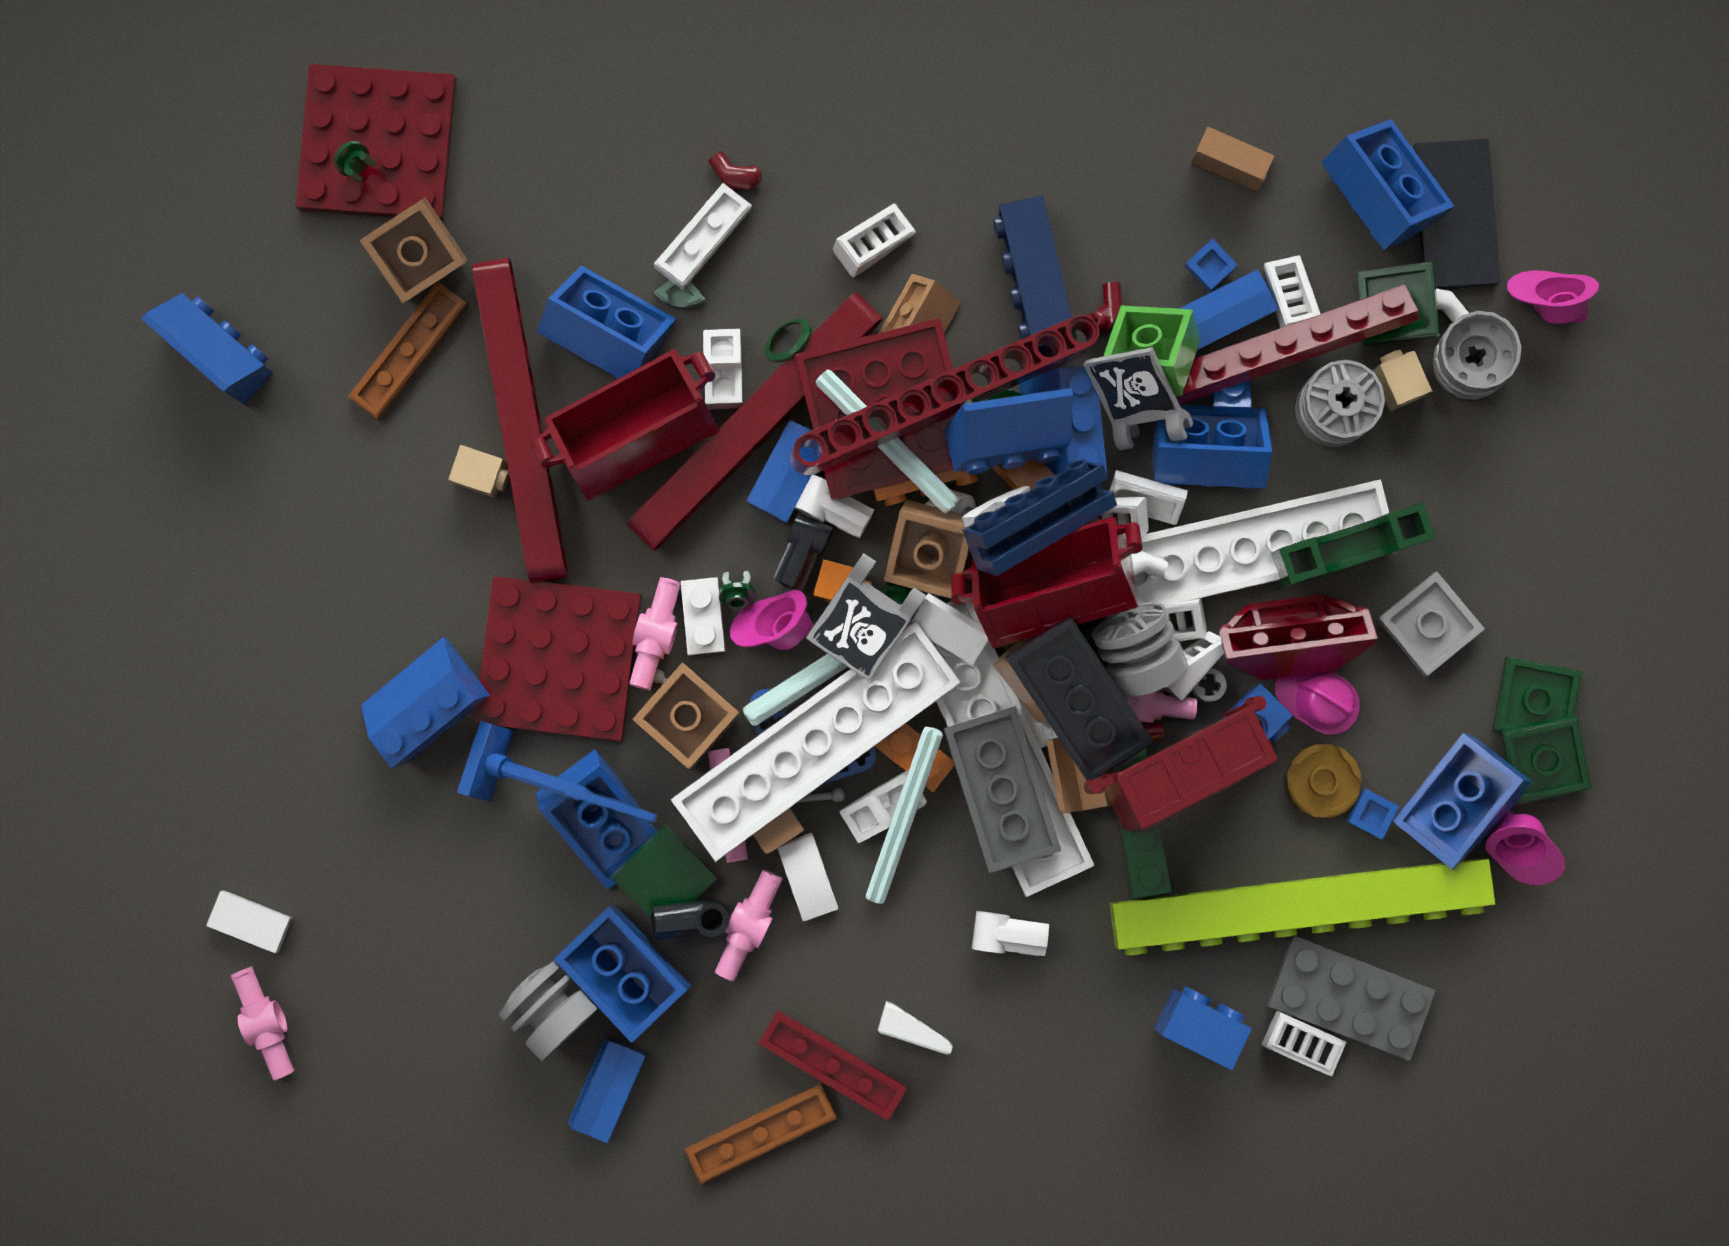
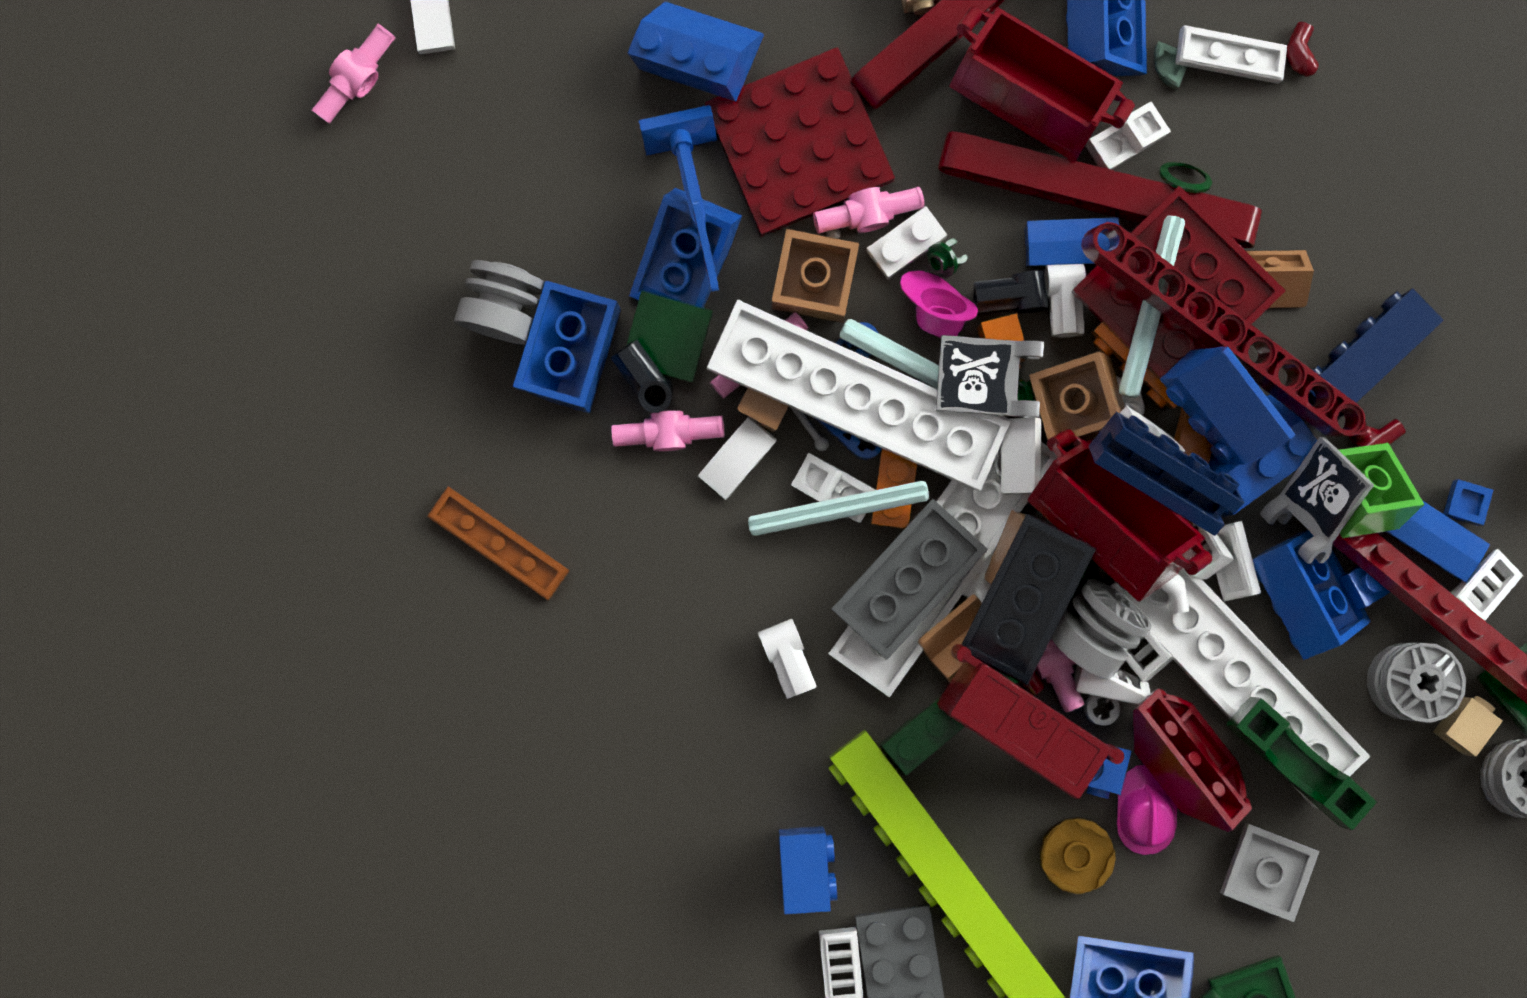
camera: 55 degrees right, 0 degrees up
(606, 1089) = (461, 392): blue piece -> none
(833, 1065) = (590, 570): dark red plate -> none
(848, 256) = (1292, 200): white slope -> none
(905, 1027) = (658, 613): white slope -> none
(1372, 814) = (1074, 914): blue plate -> none

